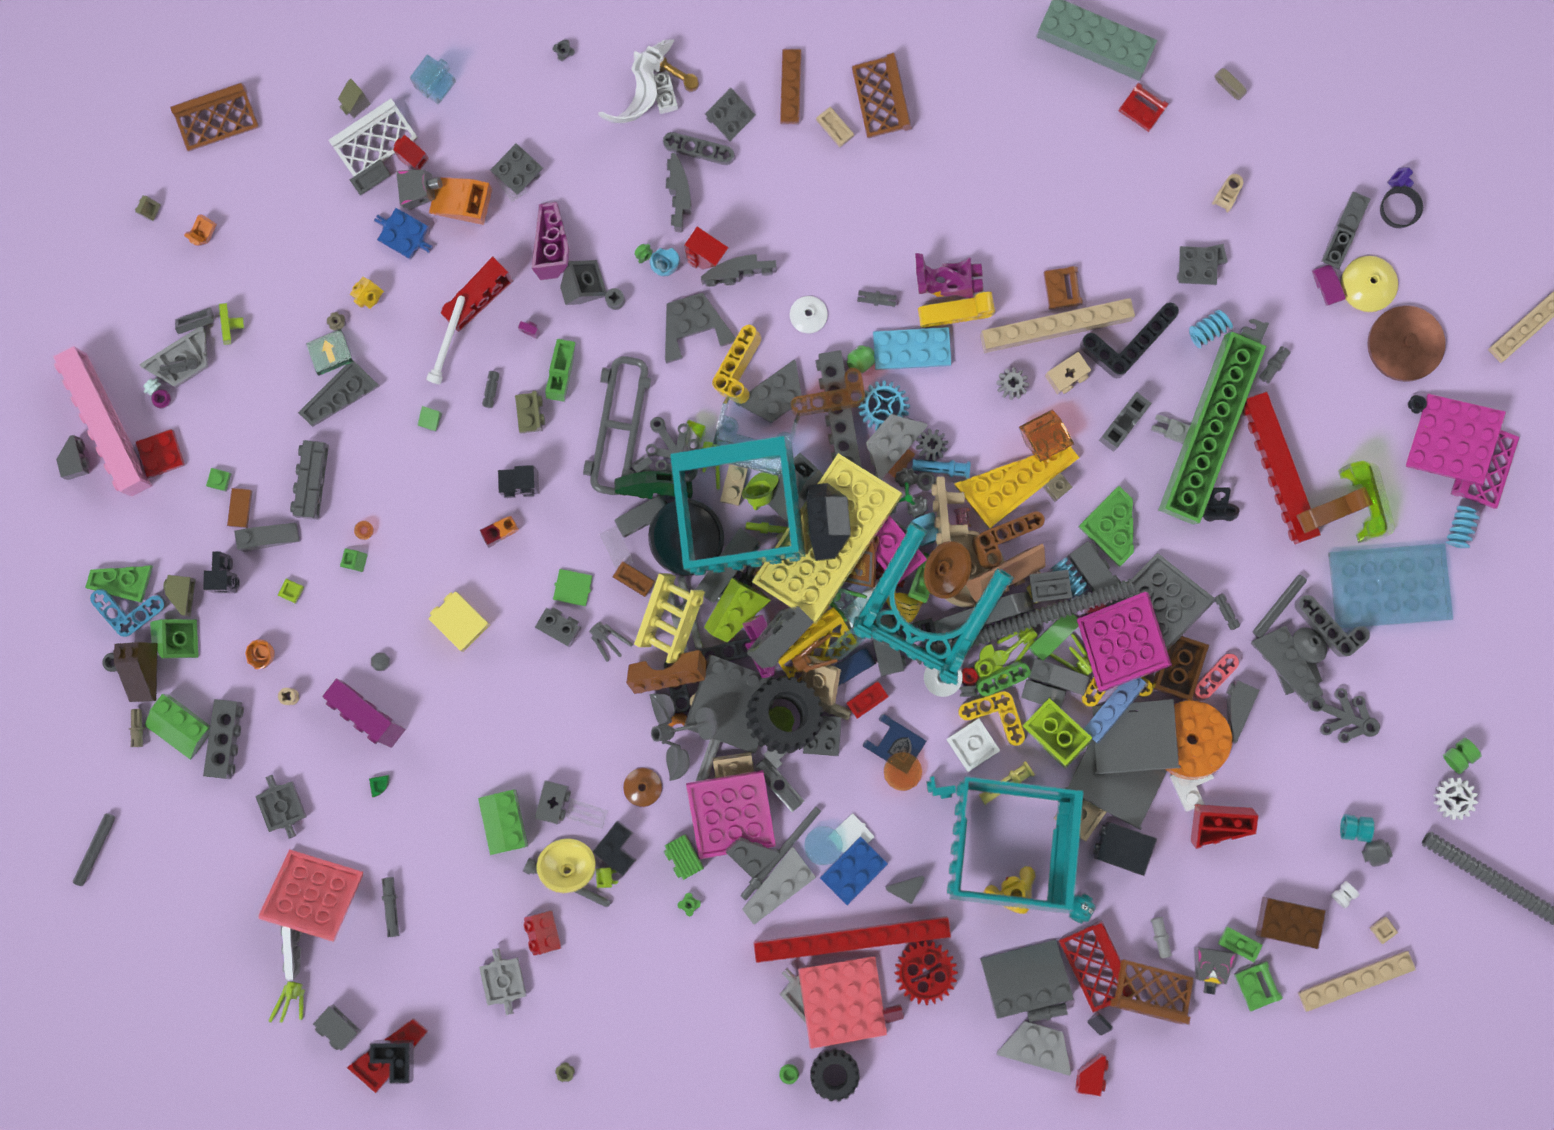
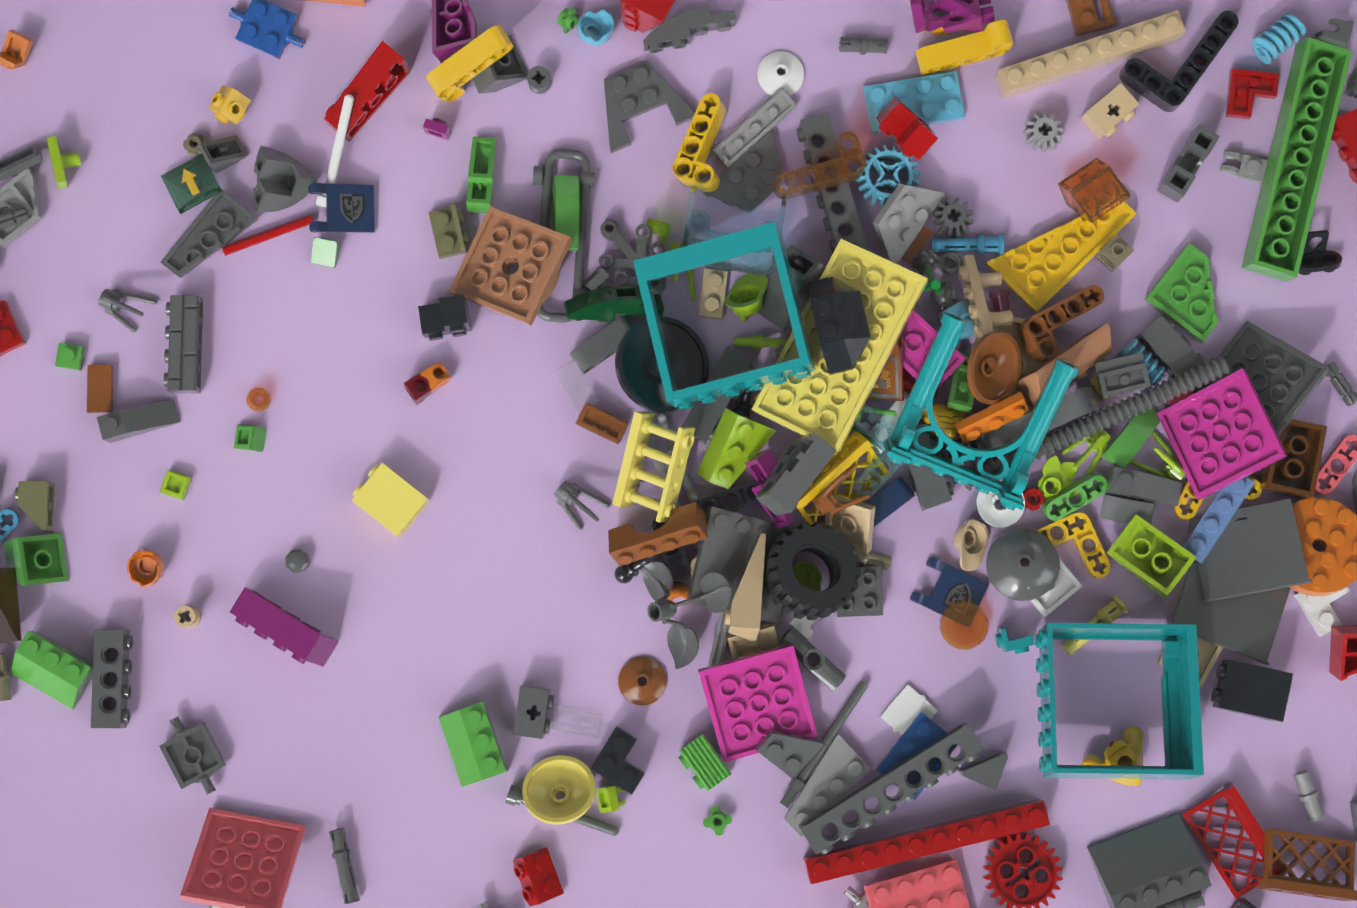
camera: 10 degrees left, 0 degrees up
(220, 578) = (85, 478): black brick -> none
(258, 439) = (113, 301): none -> dark grey plant
(357, 330) = (222, 152): none -> dark grey slope
(378, 785) = (312, 714): green tile -> none
(386, 399) = (267, 235): none -> red bar
(400, 357) = (280, 180): none -> dark grey brick
(451, 385) = (347, 208): none -> dark blue flag
(490, 389) = (397, 208): dark grey axle -> none
(558, 627) = (514, 492): dark grey brick -> none
(559, 280) = (468, 62): none -> yellow beam
(566, 428) = (496, 247): none -> nougat piece
(572, 587) = (527, 442): bright green piece -> none
(623, 407) = (566, 207): none -> bright green slope
(639, 699) = (625, 573): none -> black bar
(729, 735) = (745, 609): none -> tan wedge
(768, 931) = (897, 775): none -> dark grey brick
(782, 355) = (754, 127): none -> light grey tile
(823, 845) = (876, 728): clear light blue tile -> none
(861, 358) = (853, 119): bright green head -> none
(867, 700) = (910, 541): red plate -> none
(906, 372) = (912, 132): none -> red brick
(916, 705) = (972, 542): none -> tan piece
(942, 609) = (991, 418): none -> orange plate
(954, 742) = (1014, 579): none -> dark grey dish
(968, 691) = (1033, 517): dark grey bush -> none
(1082, 909) = (1212, 772): teal head -> none
(1178, 364) = (1244, 86): none -> red plate

